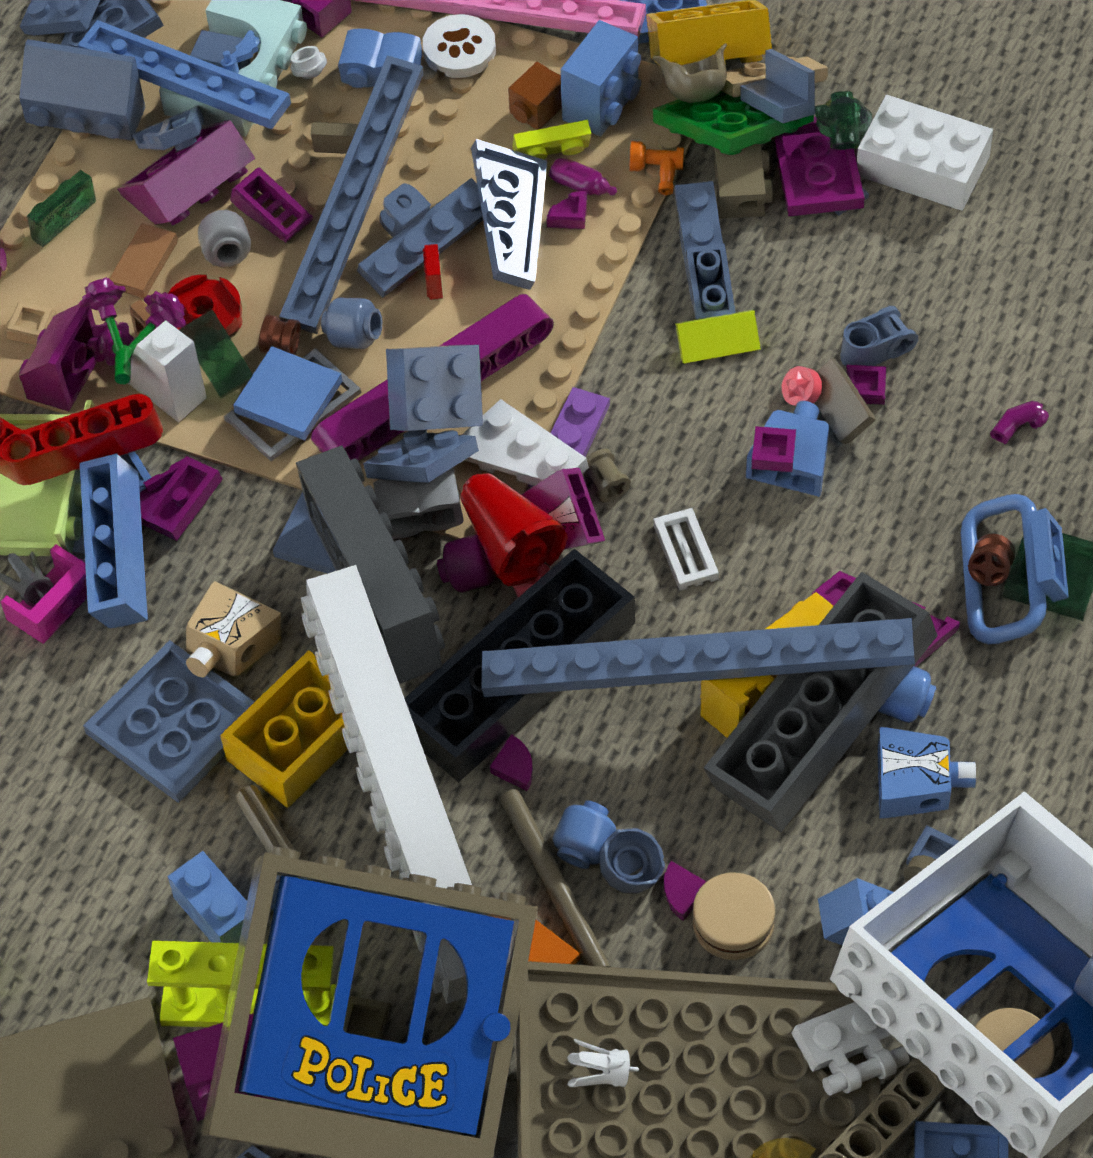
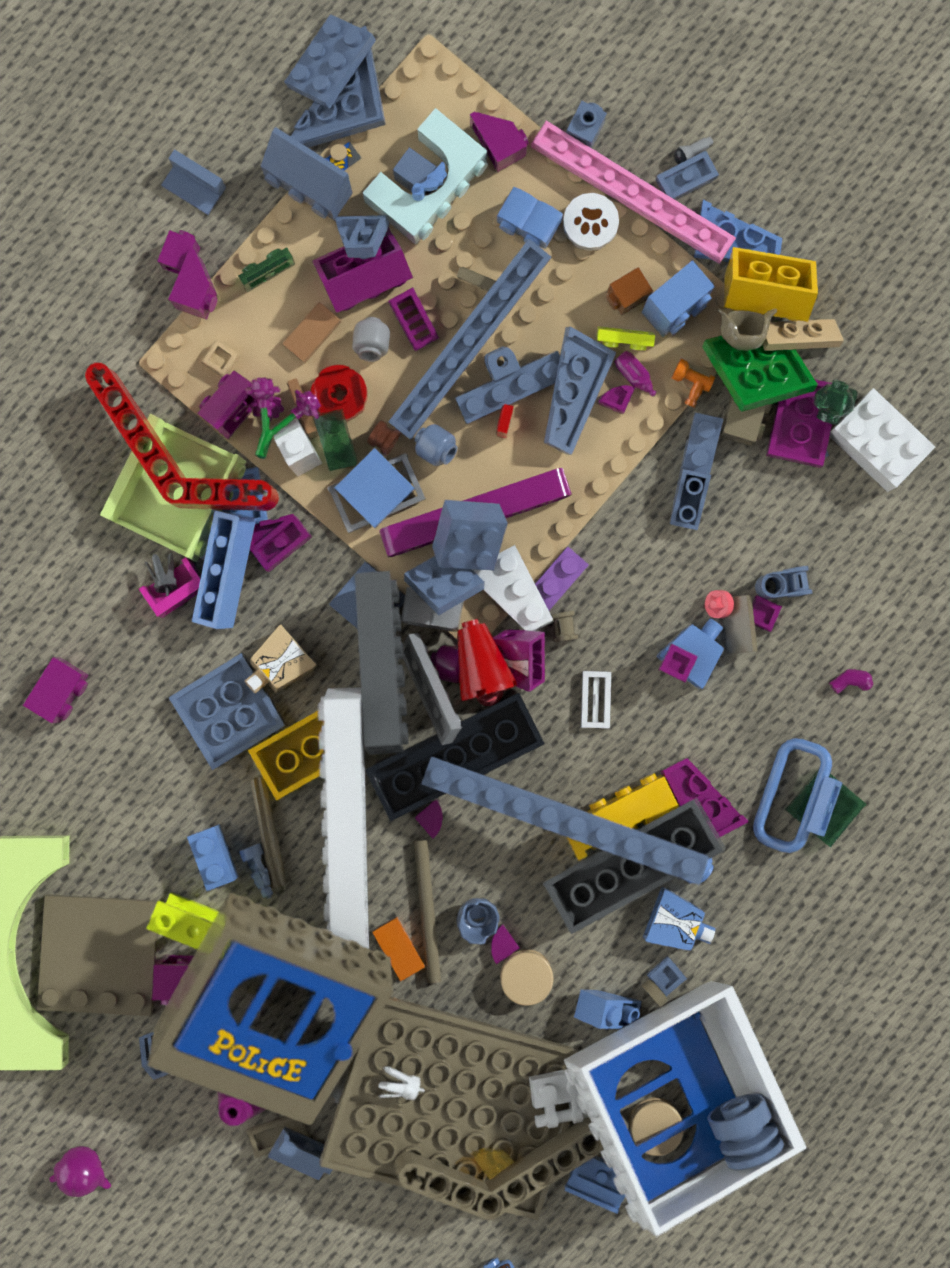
camera: 15 degrees right, 30 degrees up
(192, 76) = (382, 190): medium blue plate -> none
(307, 62) = (478, 198): white plate -> none
(458, 586) = (430, 689): none -> light grey plate
(582, 833) = (455, 890): medium blue head -> none
(718, 336) = (679, 542): neon yellow tile -> none
(785, 92) = (799, 366): sand blue panel -> none
(981, 563) = (787, 789): copper wheel -> none

